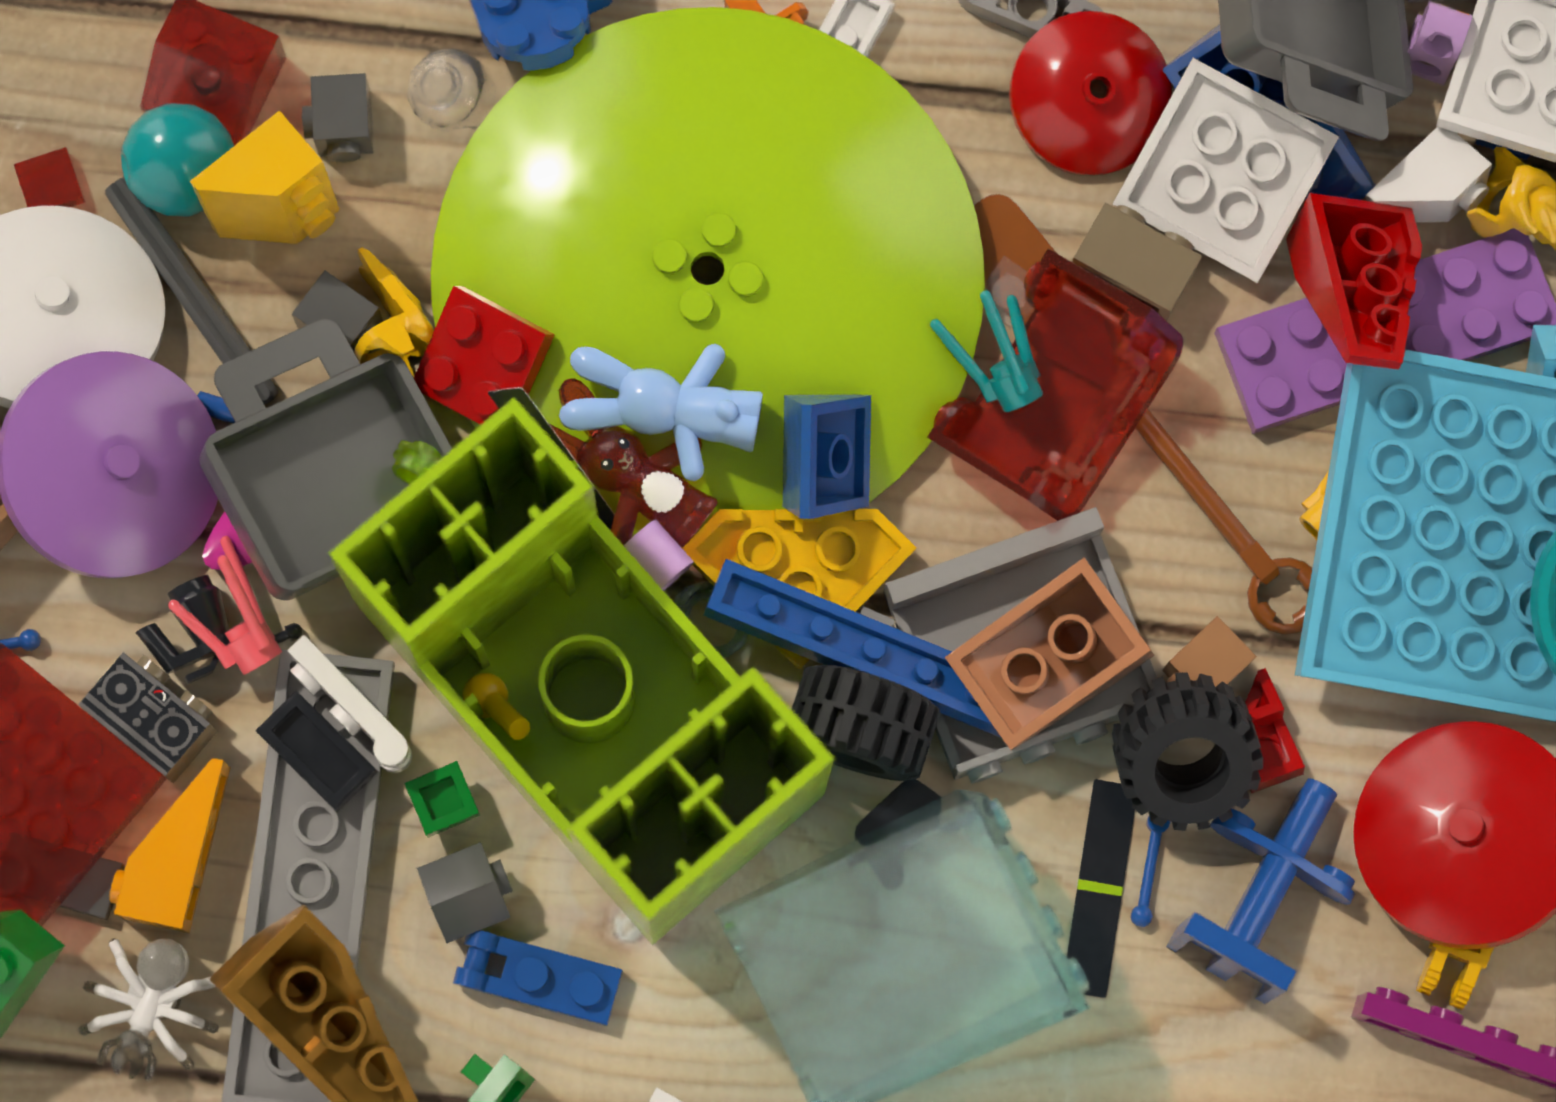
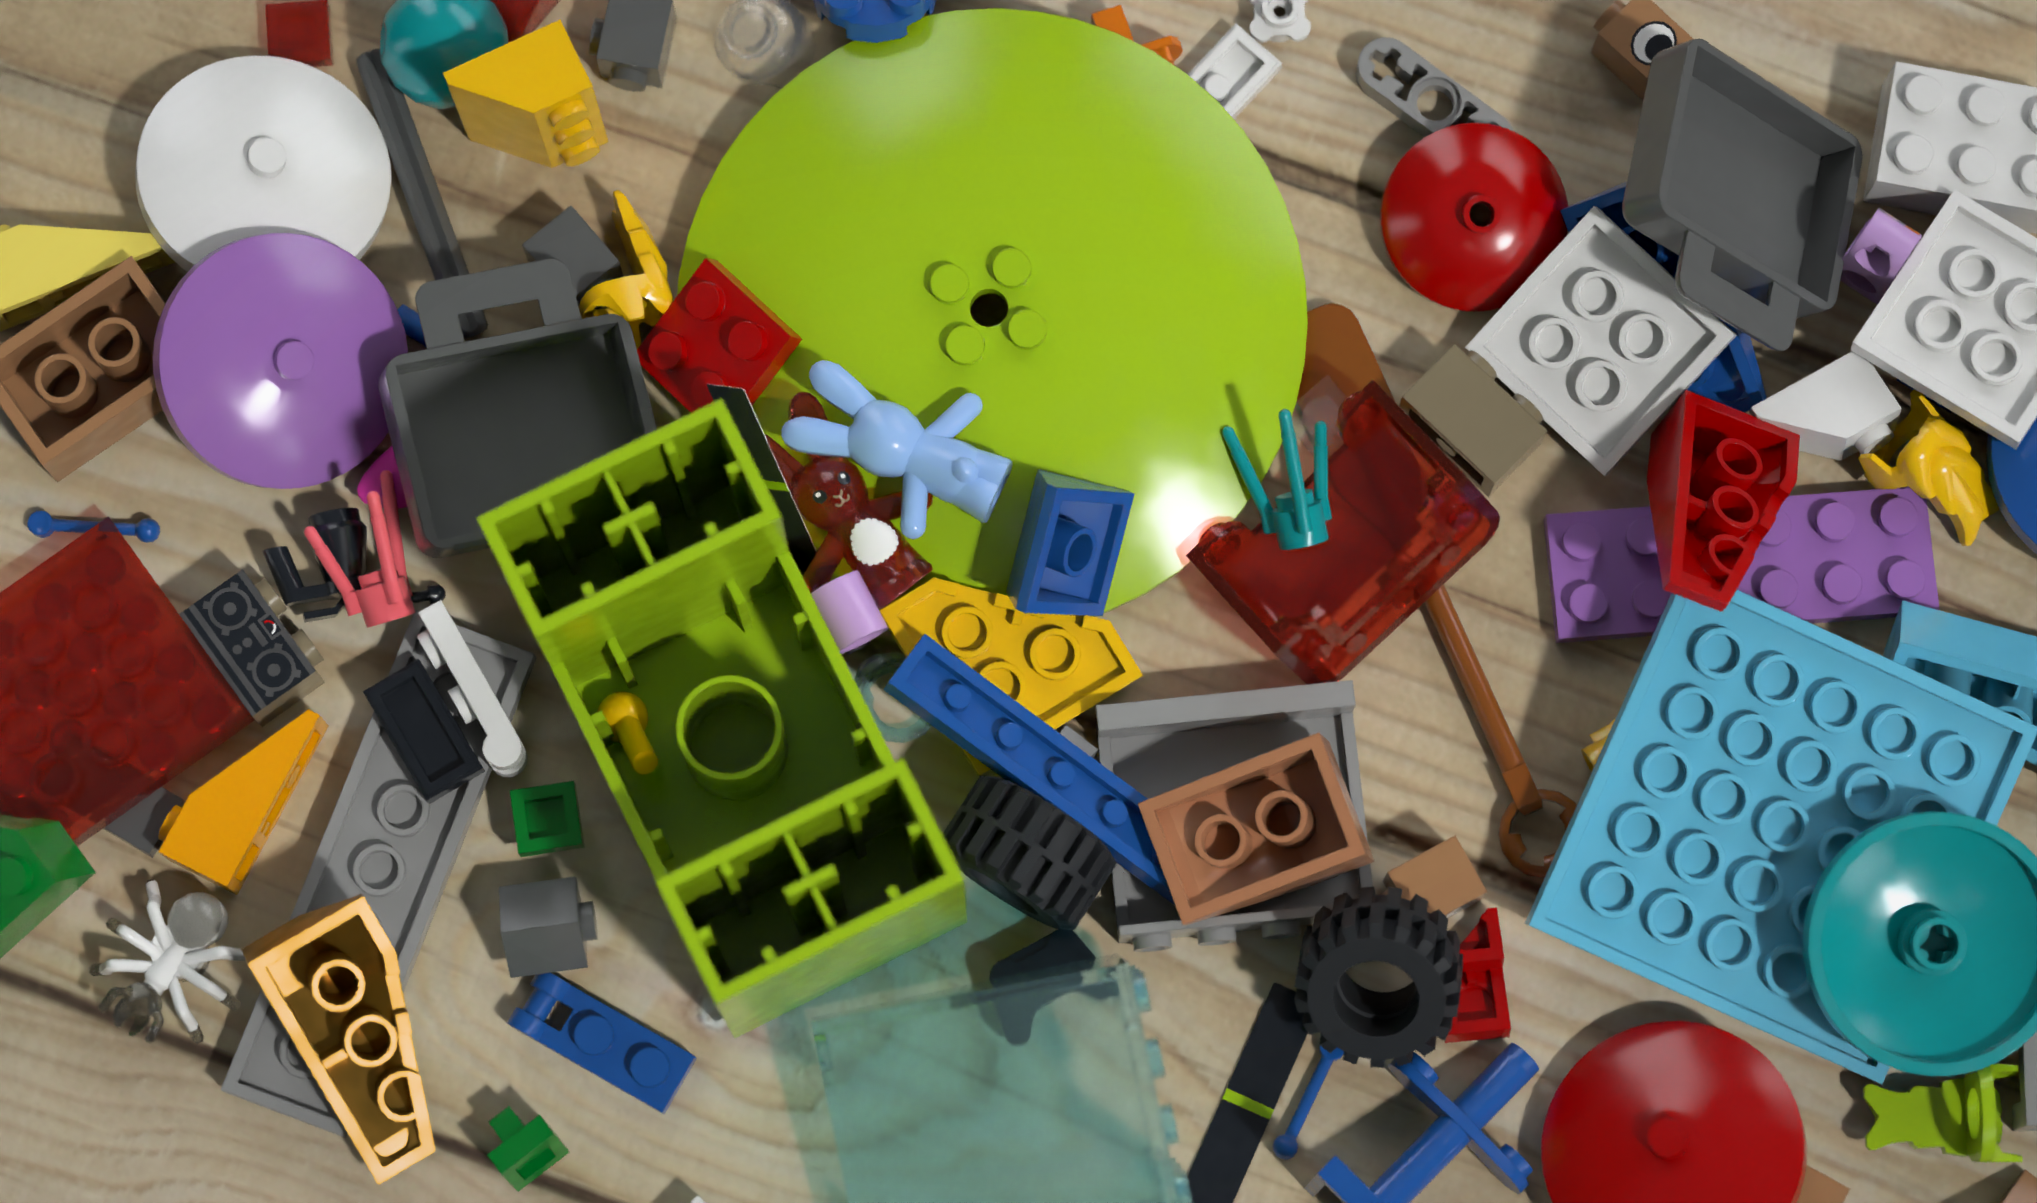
camera: 20 degrees right, 0 degrees up
(413, 460) = (610, 435): clear neon green plate -> none

